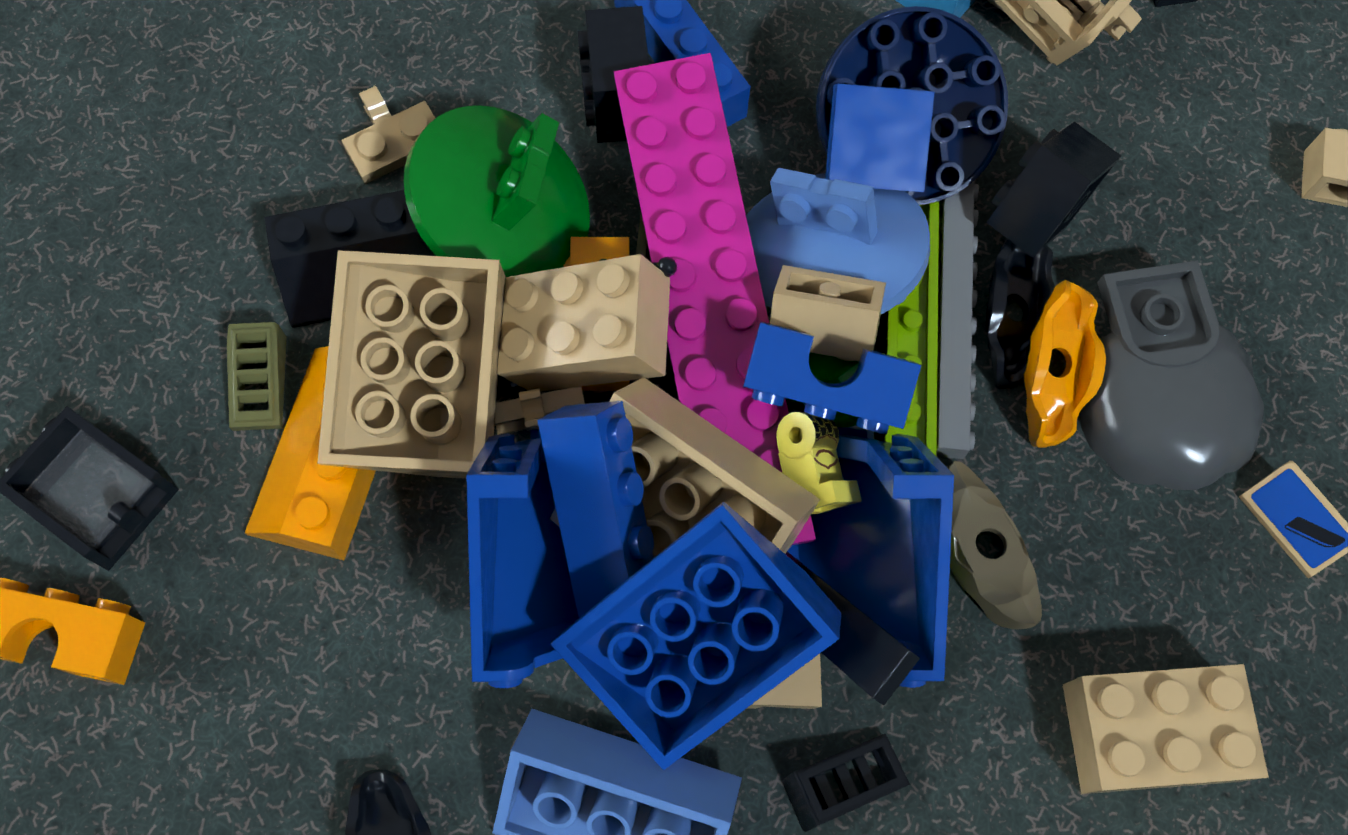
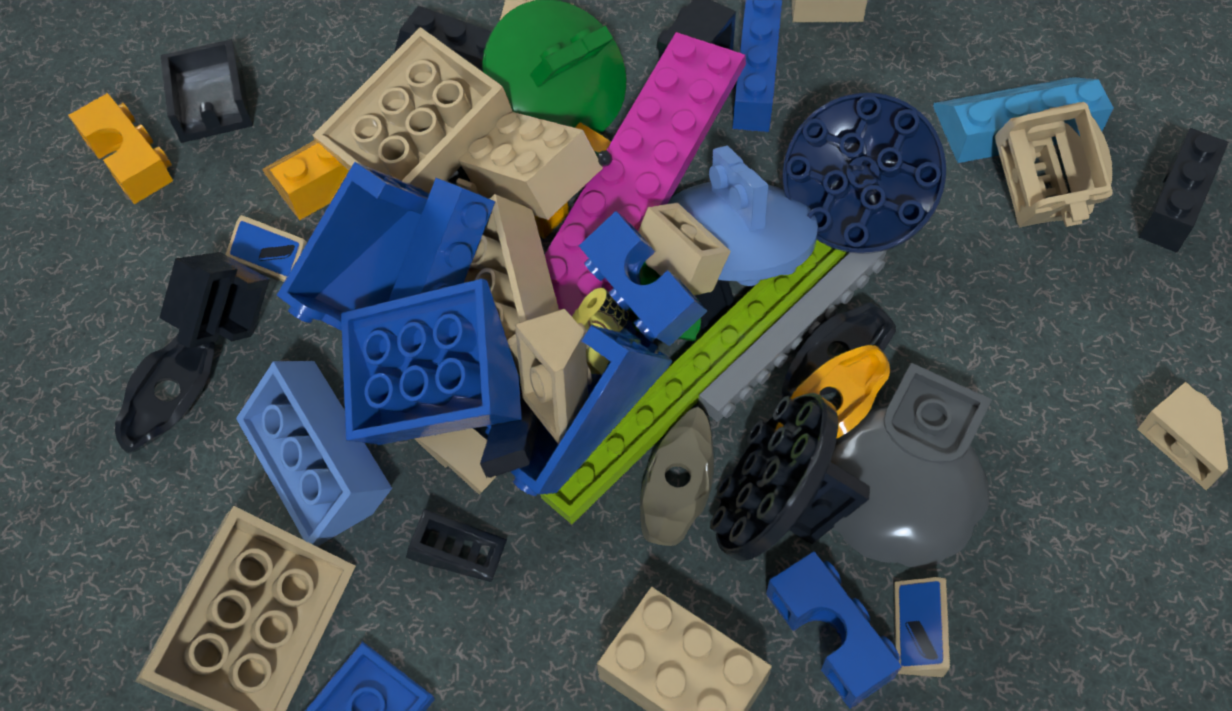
camera: 45 degrees right, 10 degrees down
(256, 335) = (351, 71): olive slope -> none
(347, 623) = (264, 248): none -> slope
(355, 729) = (213, 298): none -> black plate
(852, 542) = (553, 369): none -> tan slope
(880, 136) = (818, 173): blue tile -> none
(1051, 188) = (921, 284): black brick -> none
(1111, 481) = (786, 481): none -> black bracket
(1285, 591) = (813, 592): none -> blue arch

